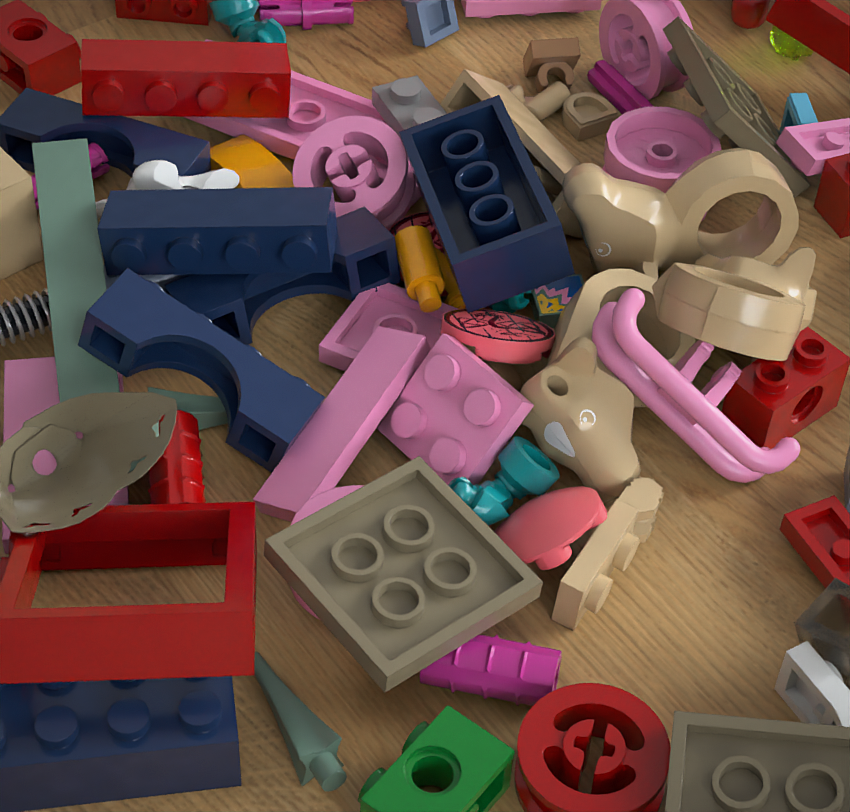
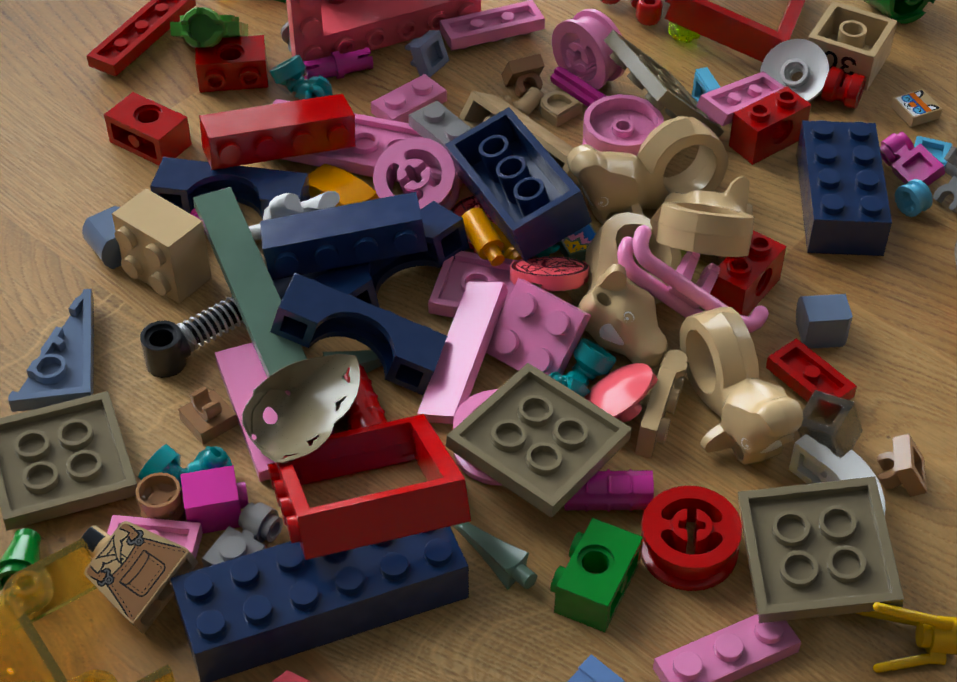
camera: 10 degrees left, 0 degrees up
(385, 67) = (408, 99): none -> bright pink plate
(734, 593) = (725, 375): none -> tan animal

